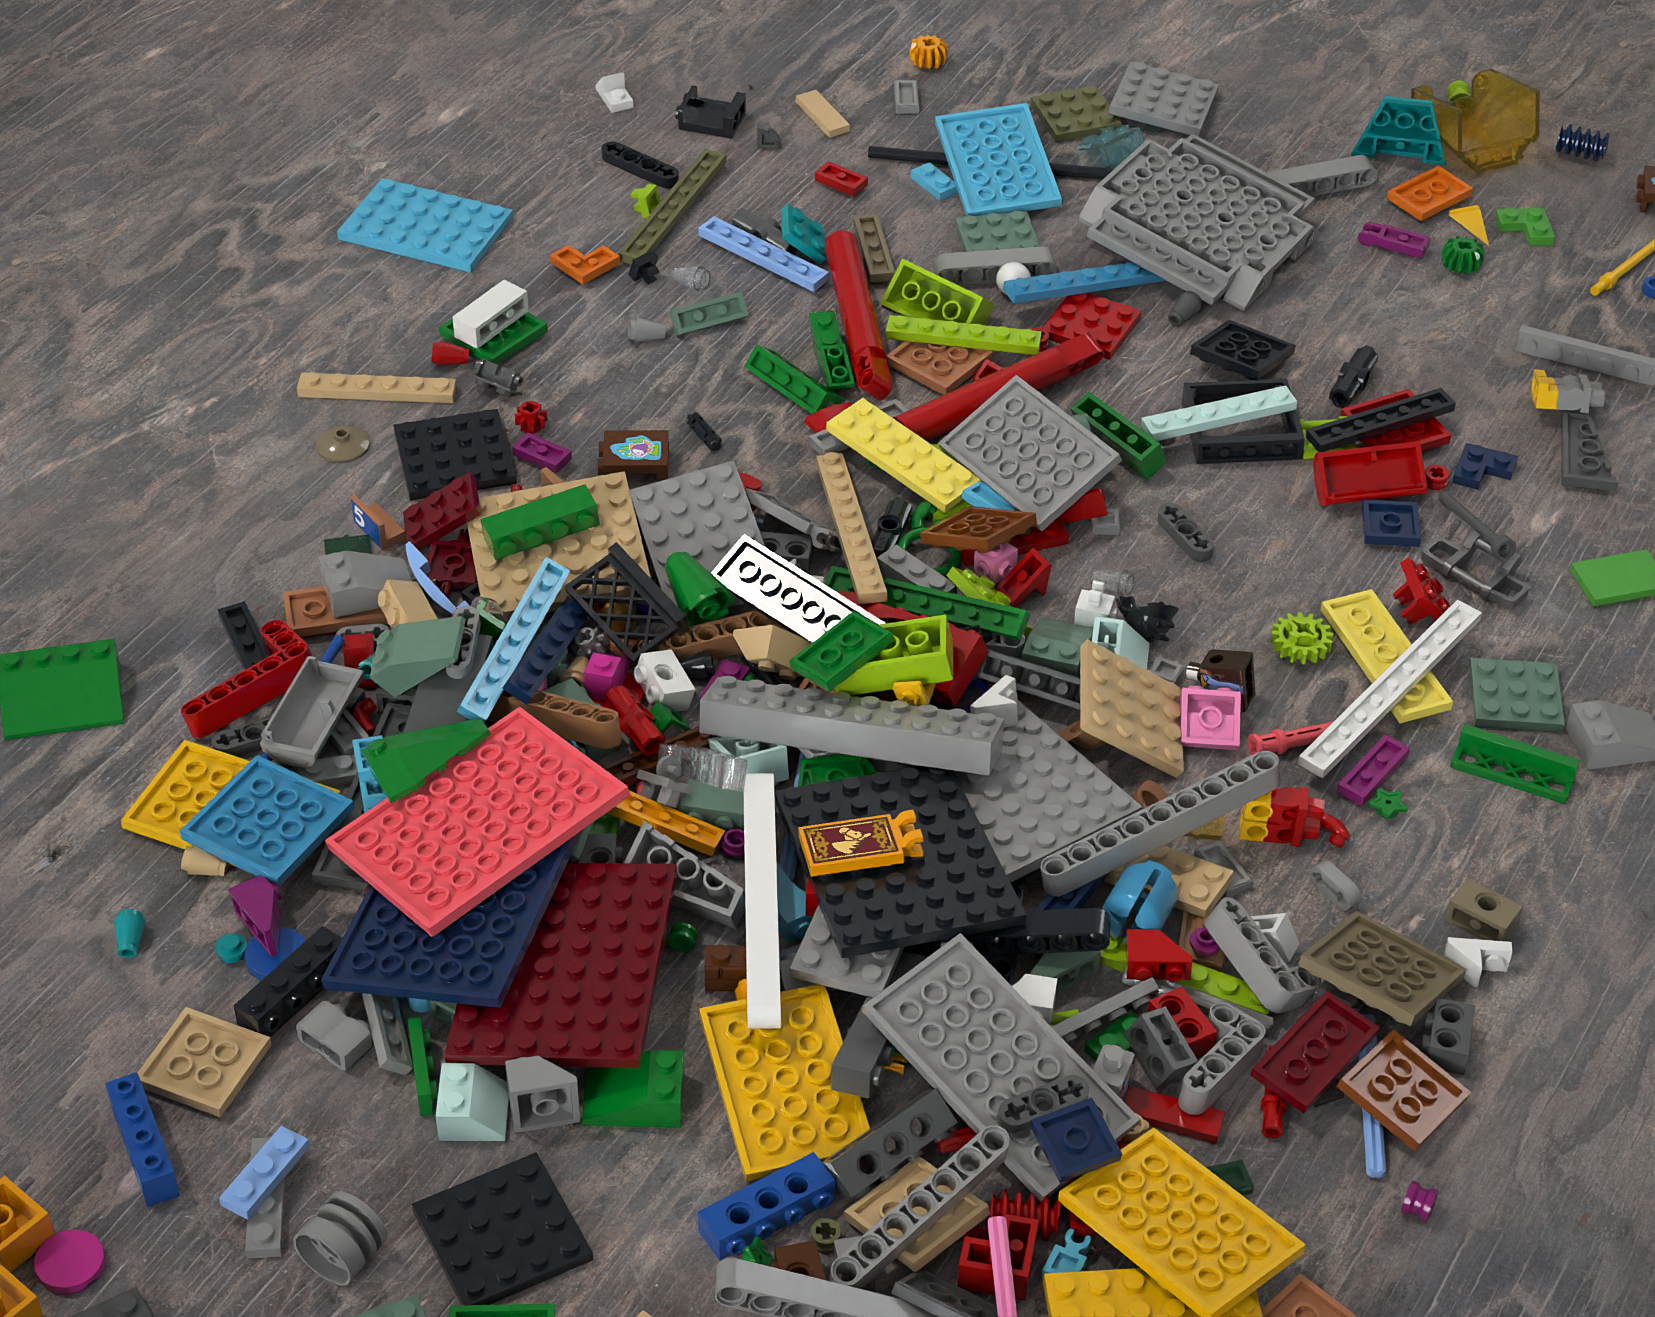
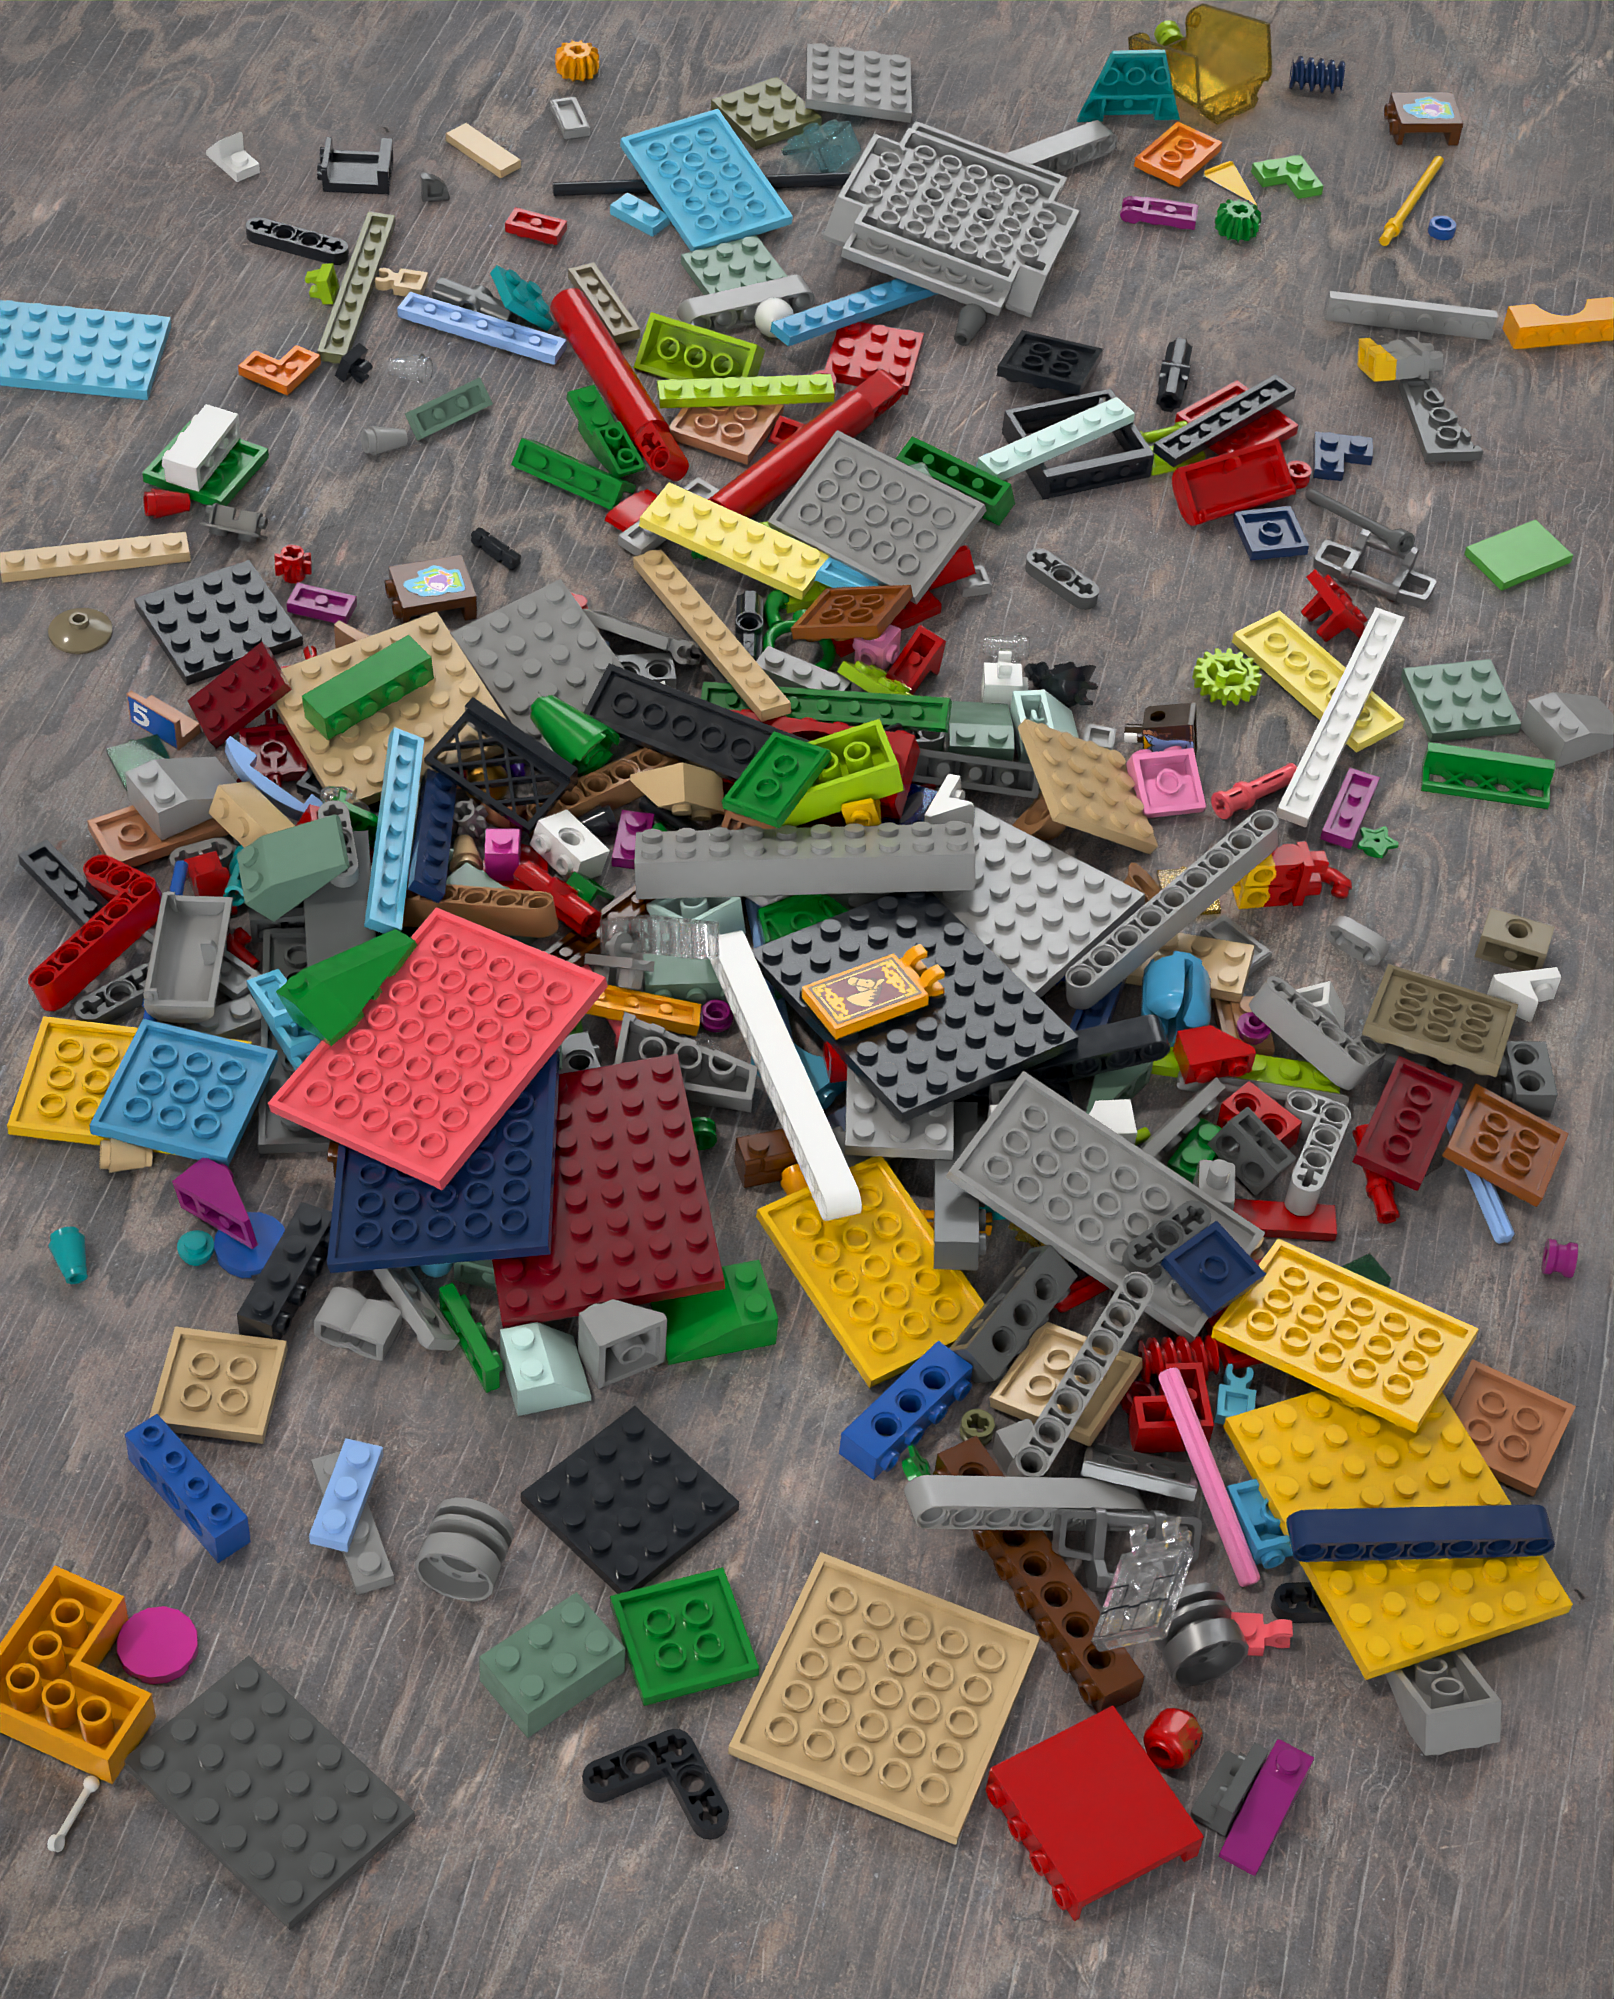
camera: 20 degrees left, 5 degrees up
(715, 207) = (402, 282): none -> tan plate

